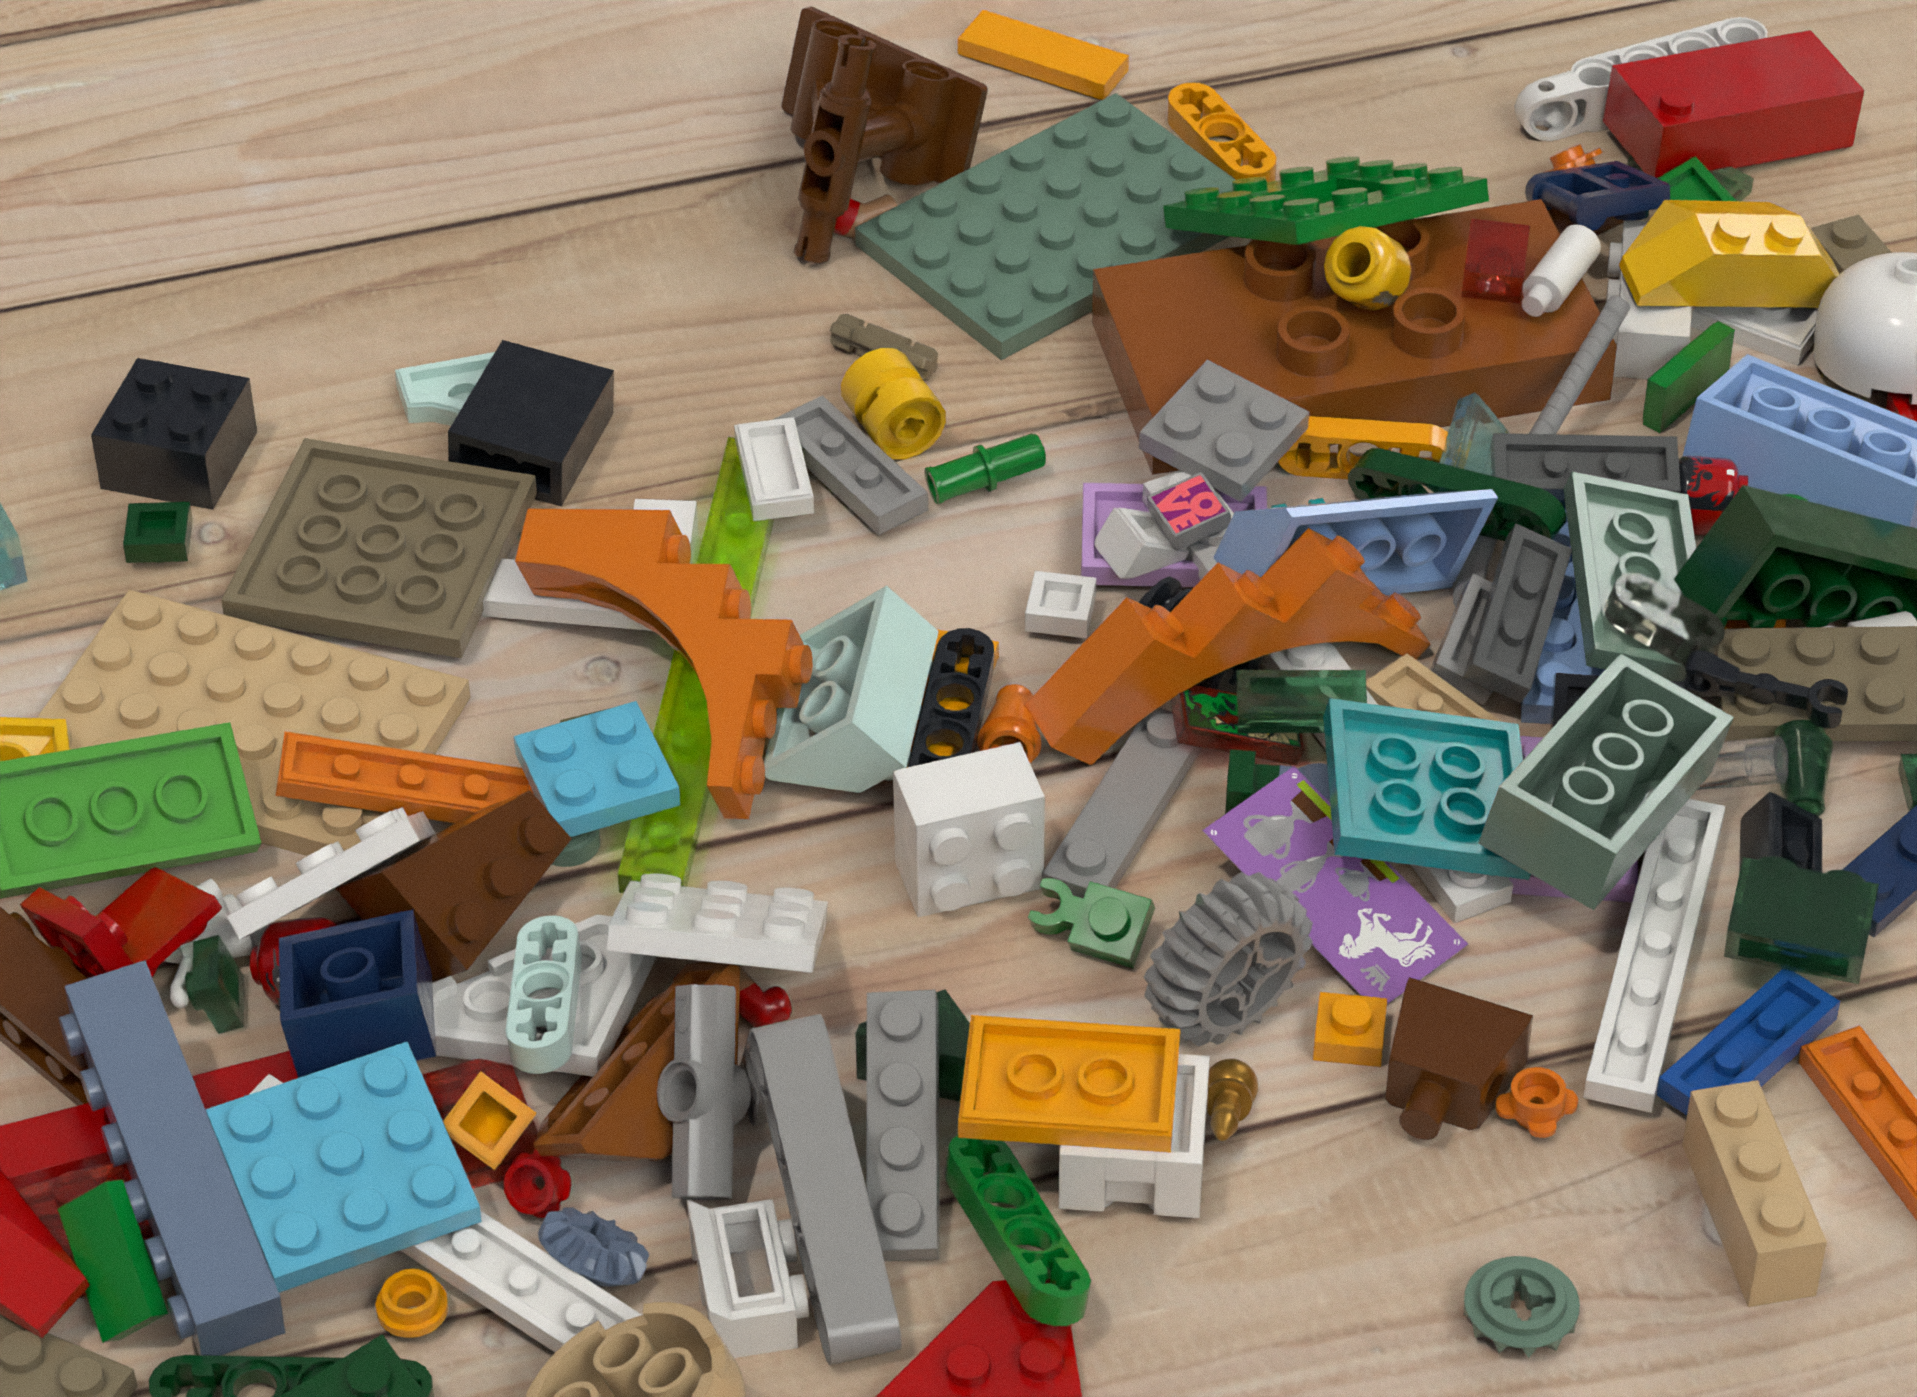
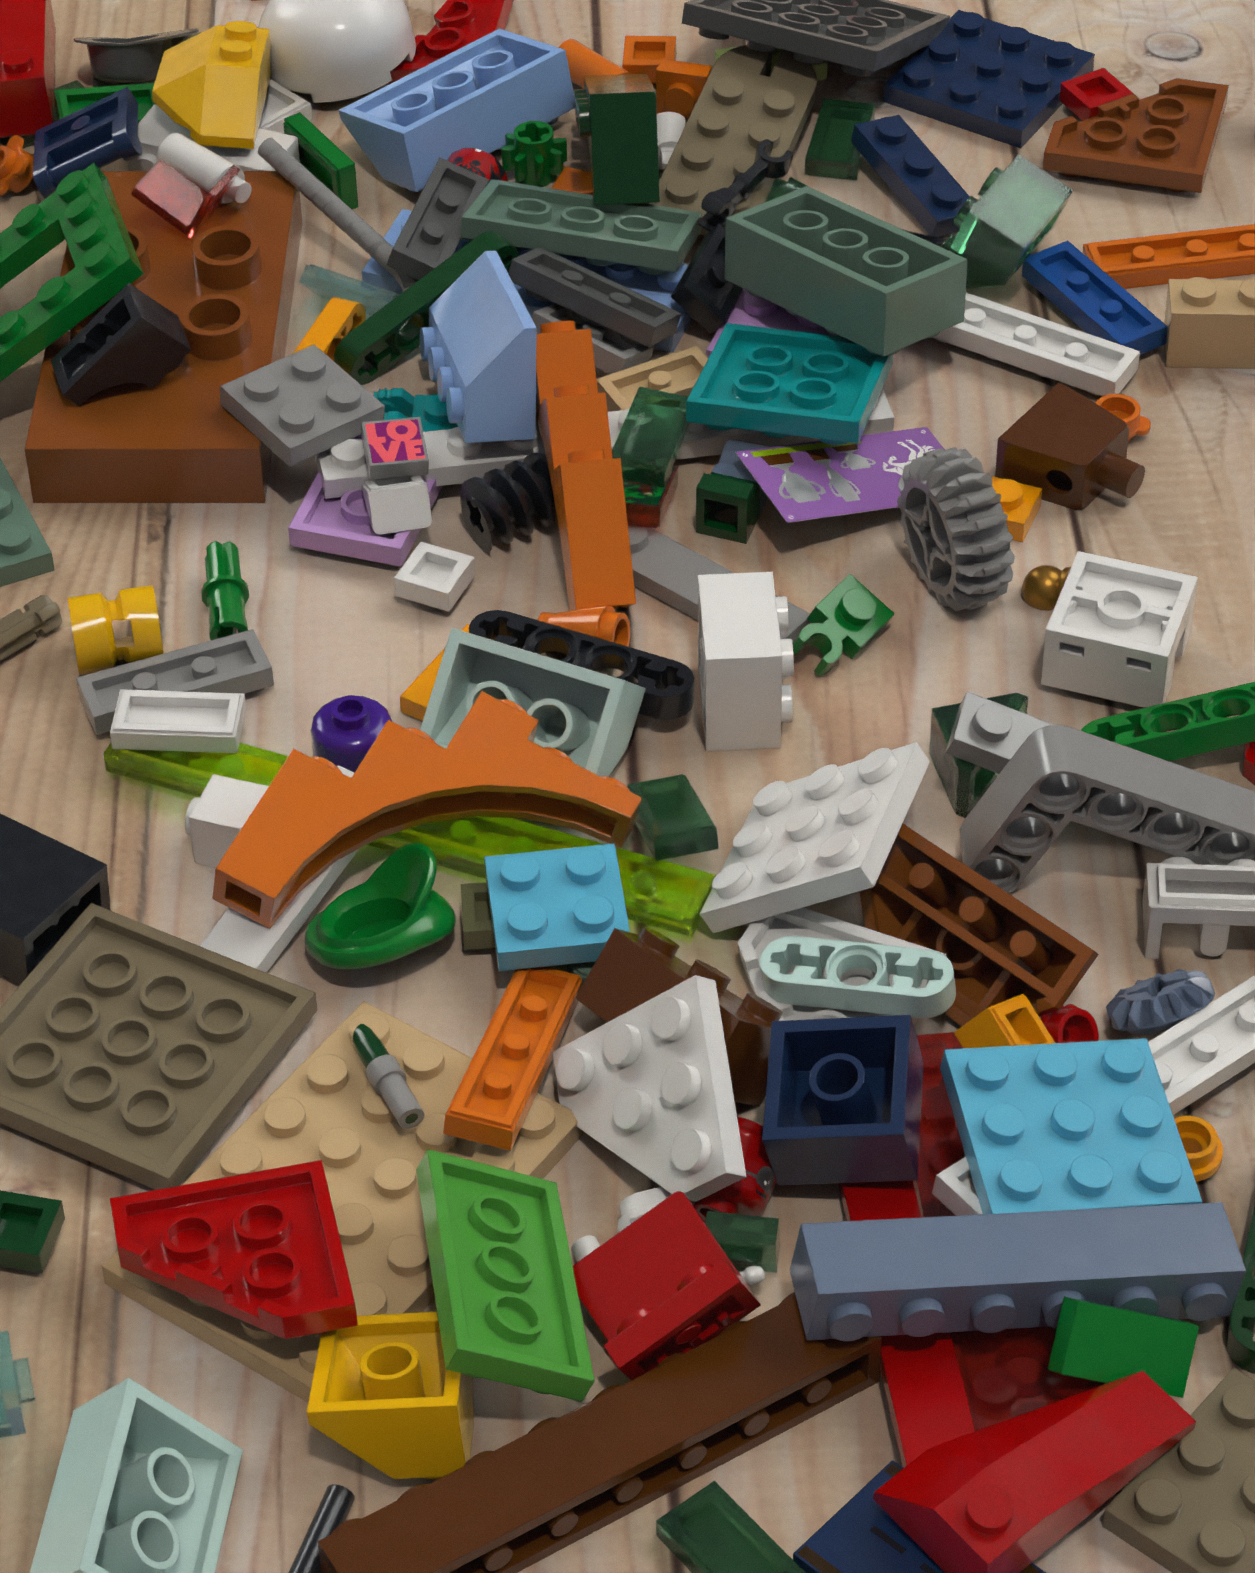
camera: 75 degrees left, 0 degrees up
(122, 650) = (246, 1246): none -> red plate
(356, 701) = (387, 1077): none -> light grey piece
(562, 666) = (384, 915): none -> green piece
(703, 1092) = (999, 853): light grey piece -> none
(759, 837) = (673, 818): none -> clear green tile
(789, 585) = (347, 729): none -> dark purple head
(1069, 1083) = (1097, 631): light orange tile -> none
(1230, 280) = (122, 344): none -> black arch
(1367, 268) = (169, 257): yellow head -> none
(1662, 618) = (656, 210): clear smoke beam -> none
(1798, 186) = (128, 59): none -> dark grey piece

